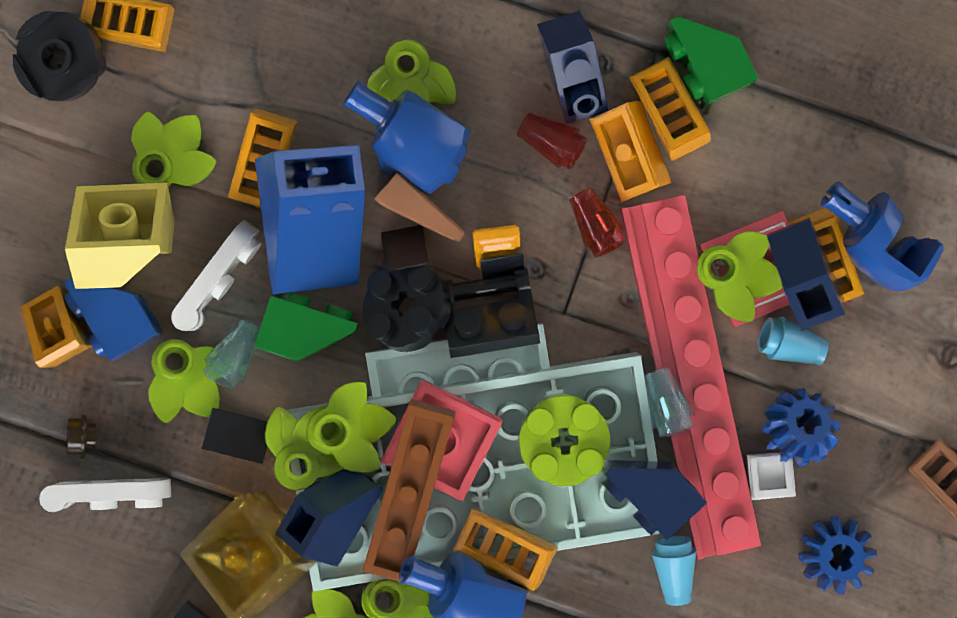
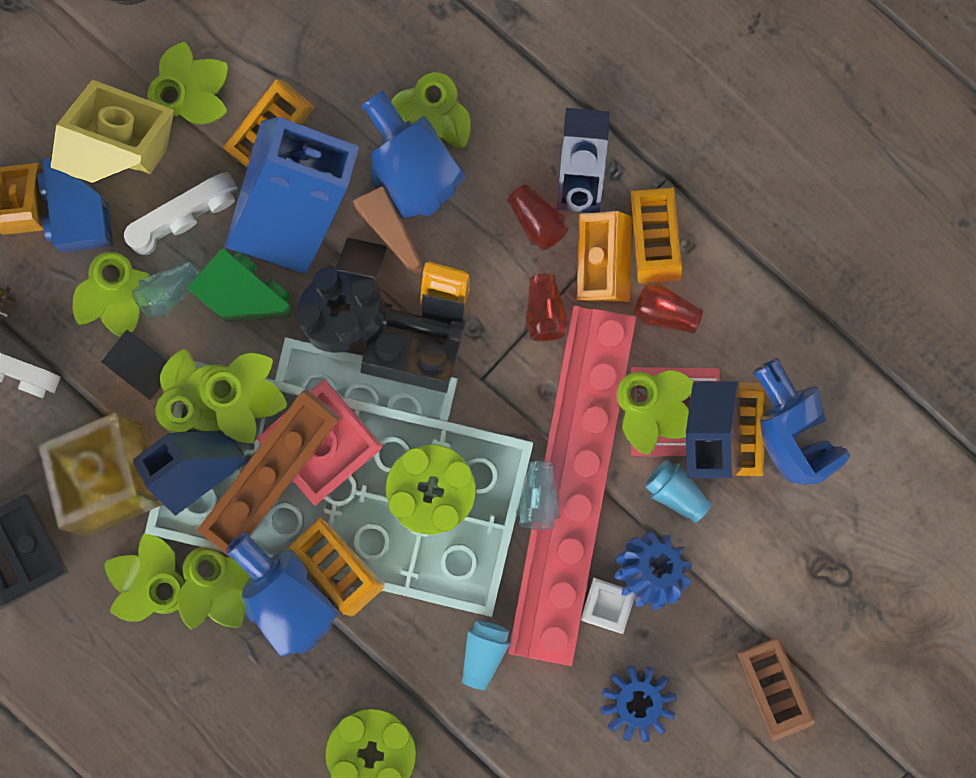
camera: 25 degrees right, 5 degrees down
(658, 492) = (495, 571): dark blue slope -> none
(710, 176) = (666, 309): none -> clear red cone
(712, 60) = (712, 205): green slope -> none

